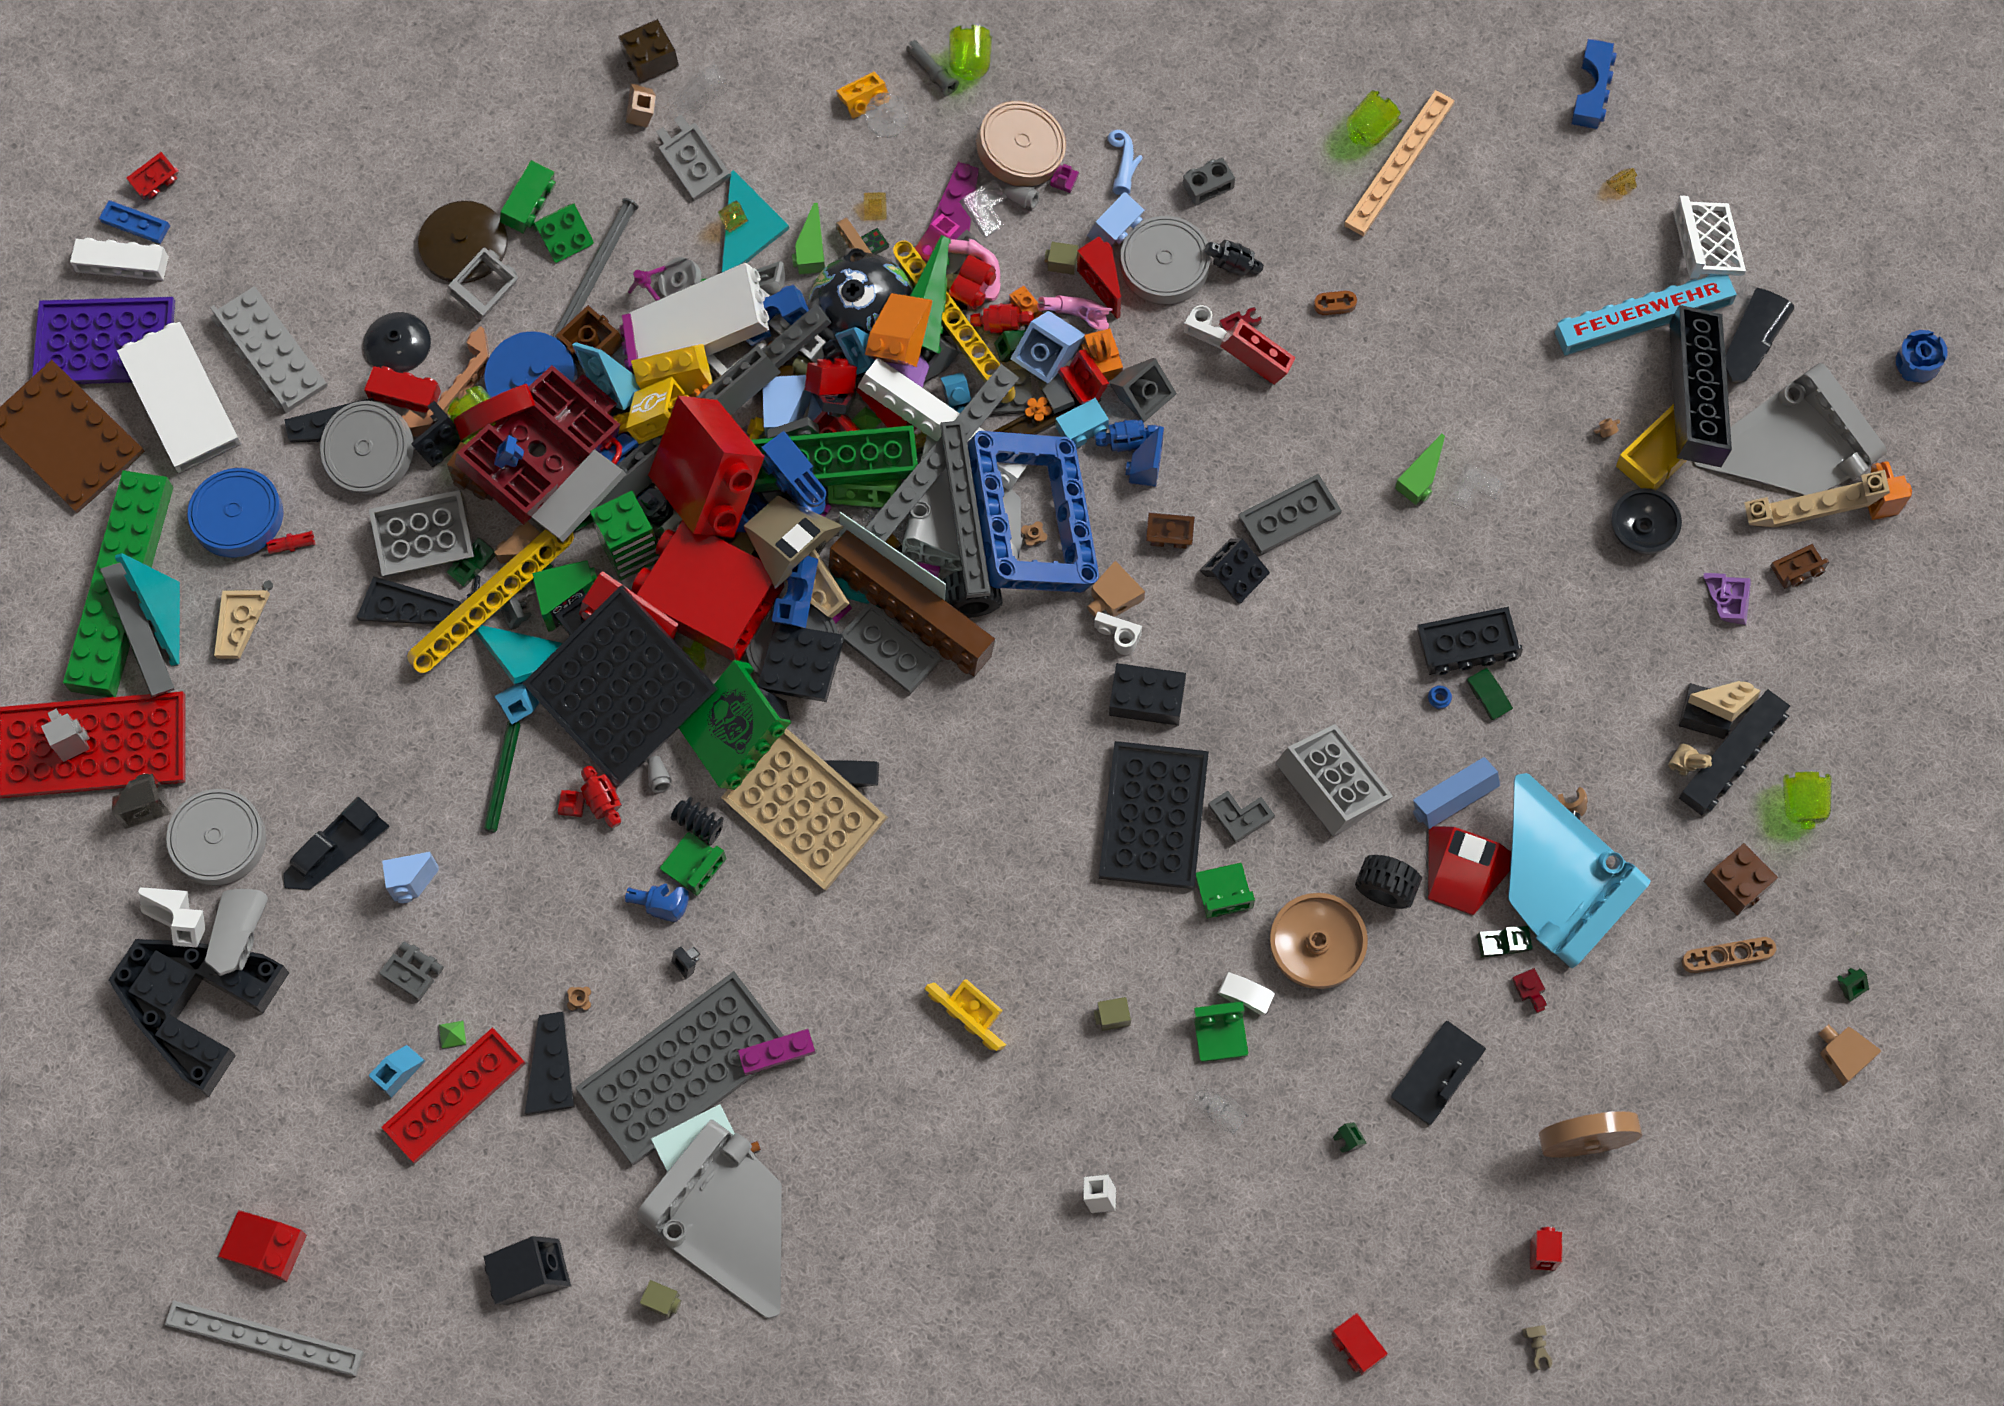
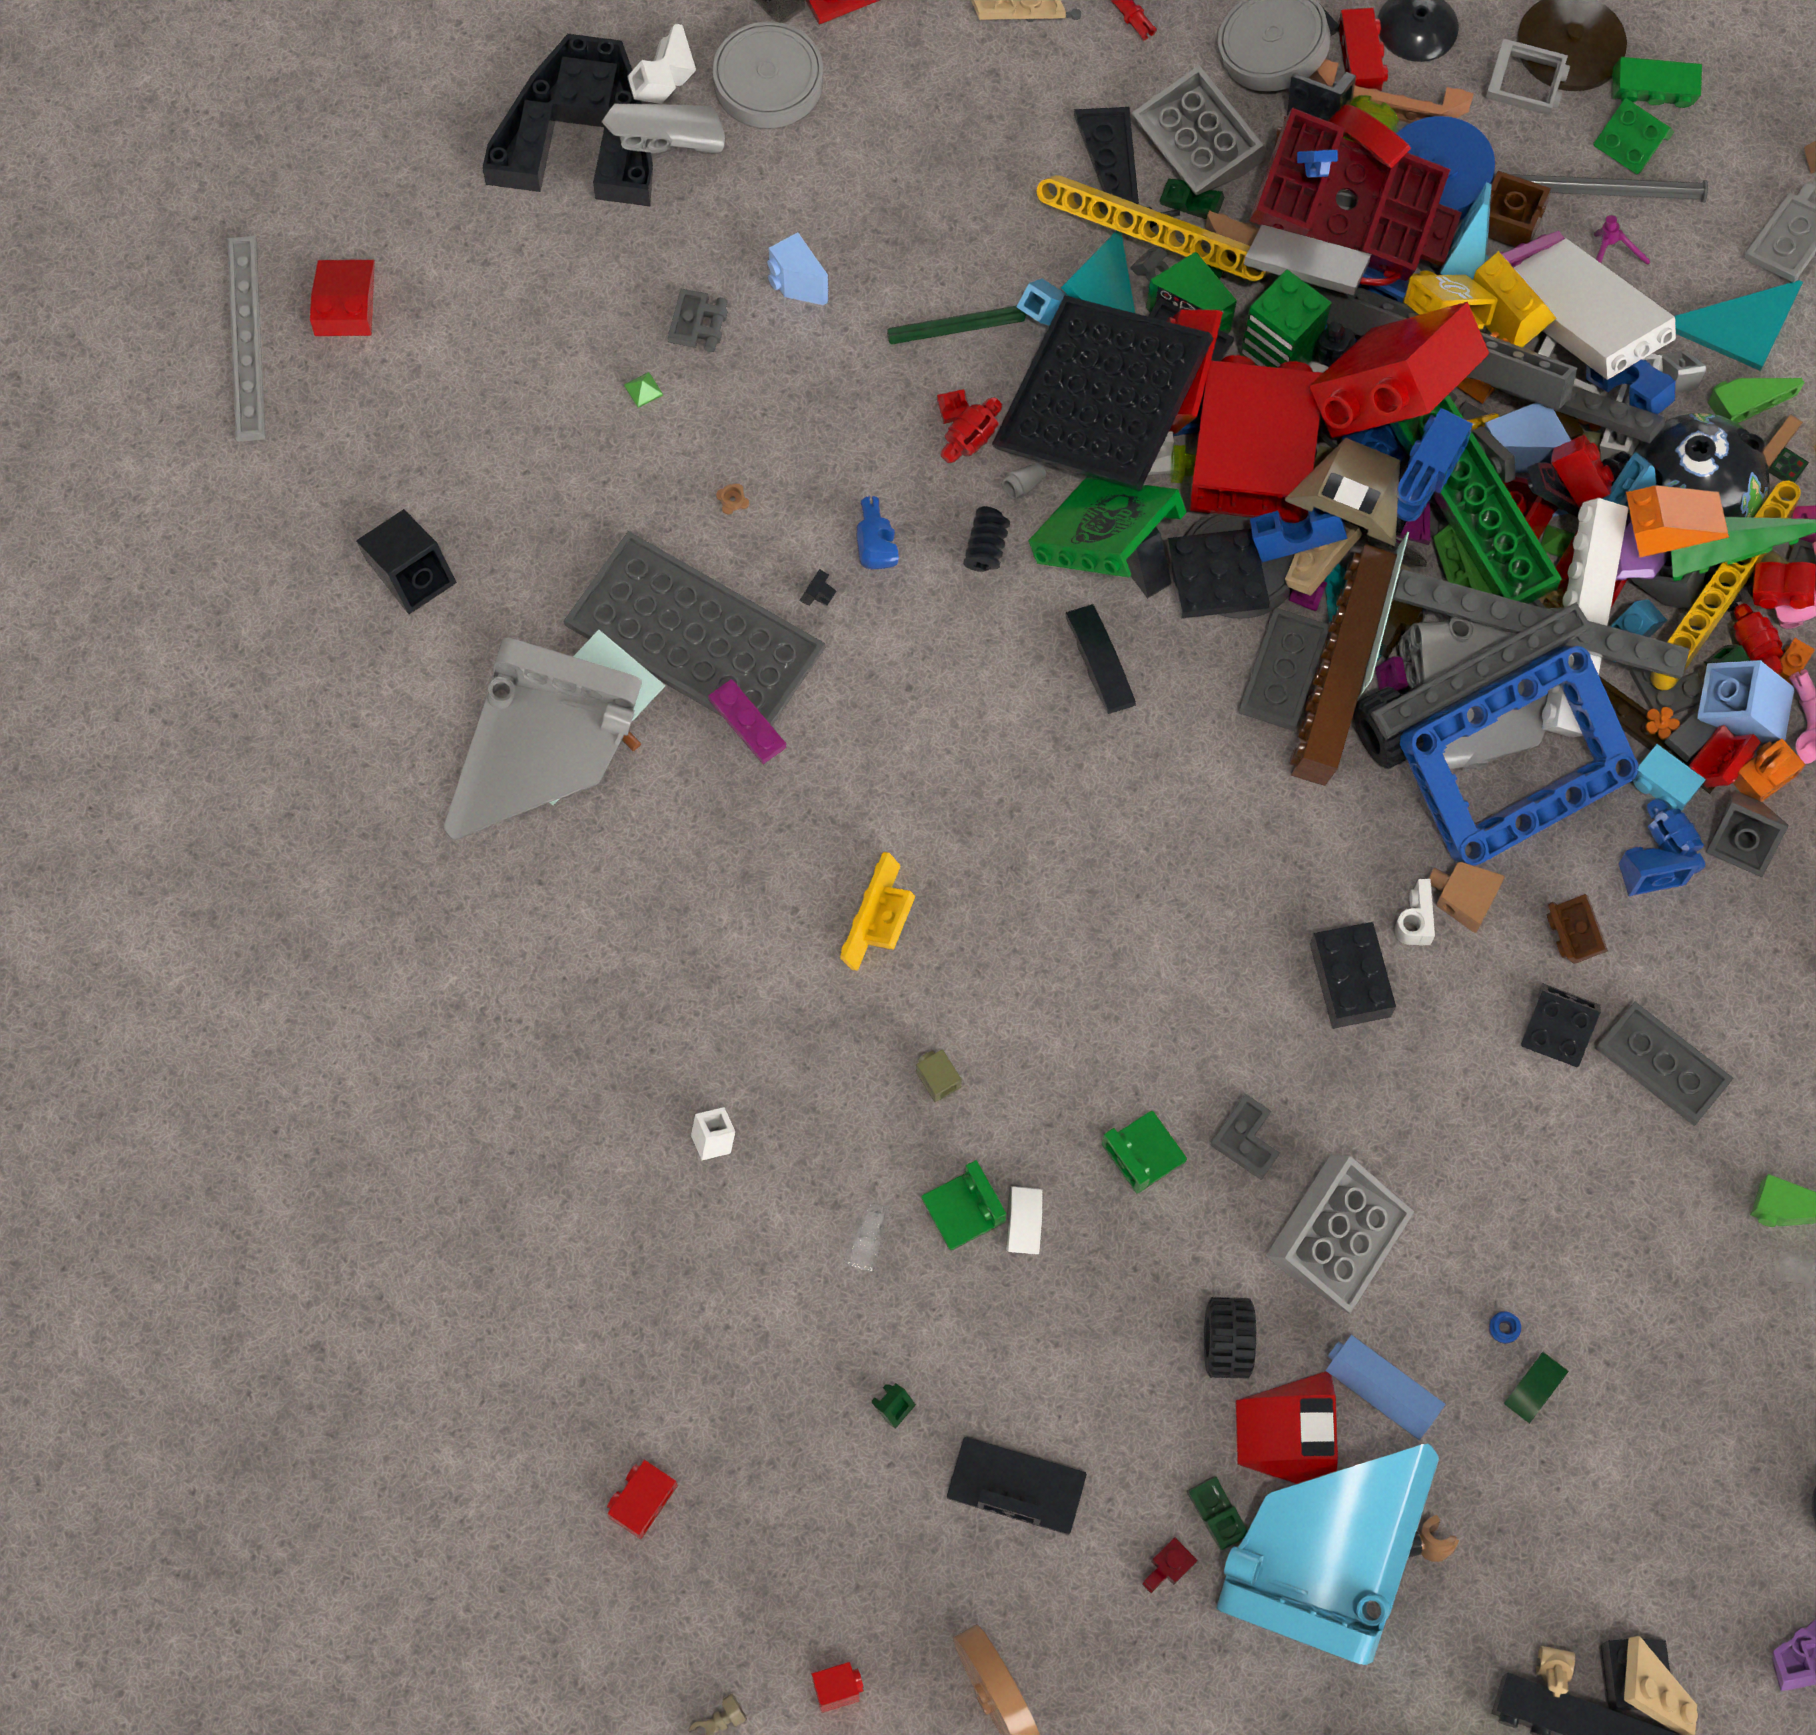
camera: 65 degrees right, 0 degrees up
(334, 846) = (806, 192): black panel -> none
(396, 1070) = (578, 346): dark azure slope -> none
(453, 1095) = (574, 415): red plate -> none
(550, 1070) = (642, 500): black wing -> none
(660, 1299) = (422, 707): olive brick -> none
(675, 268) = (1642, 273): light grey plate -> none
(693, 863) = (934, 556): green bracket -> none
(732, 216) = (1740, 299): clear yellow tile -> none
(806, 809) = (1046, 645): tan plate -> none
(1034, 539) = (1495, 782): medium nougat plate -> none
(1154, 815) = (1205, 1037): black plate -> none
(1318, 940) = (1123, 1281): medium nougat dish -> none
(1469, 641) = (1595, 1339): black bracket -> none

